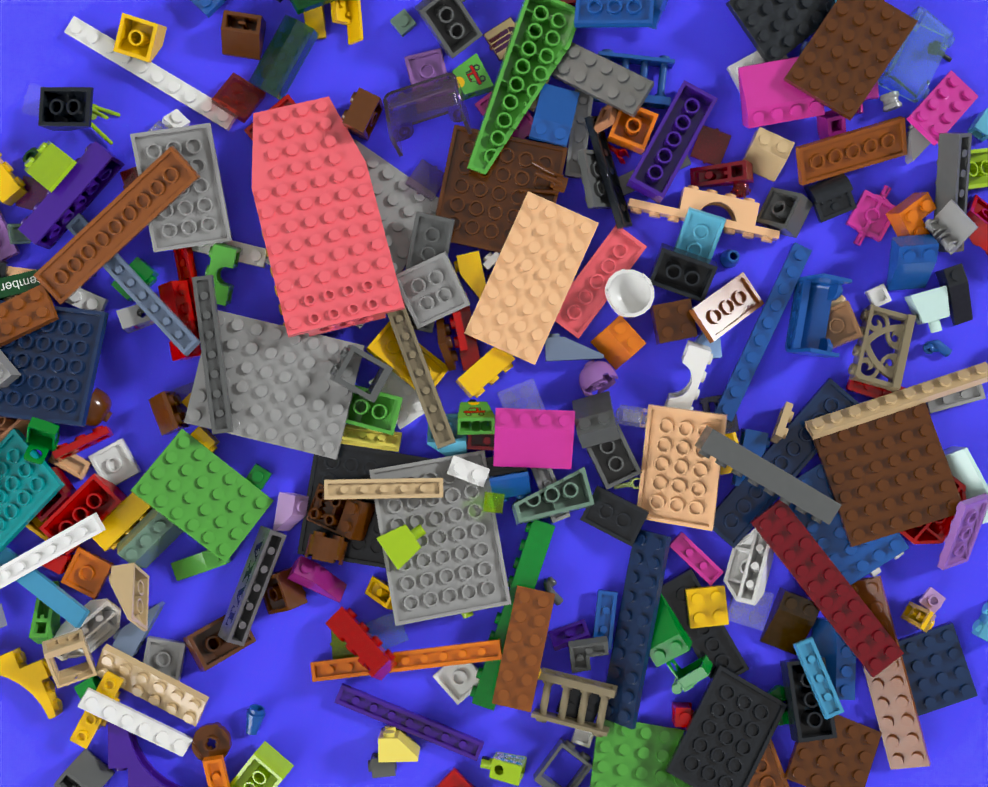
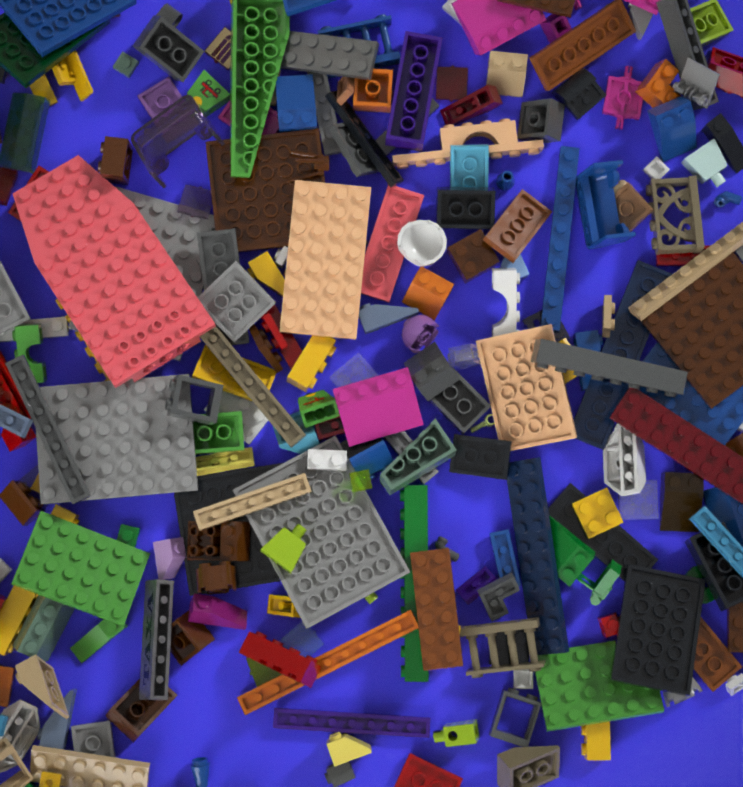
camera: 25 degrees left, 5 degrees down
(457, 680) = (384, 665): white tile -> none
(620, 153) = (370, 117): red hand -> none
(696, 558) = (571, 472): dark pink plate -> none
(741, 190) = (493, 114): clear red plate -> none

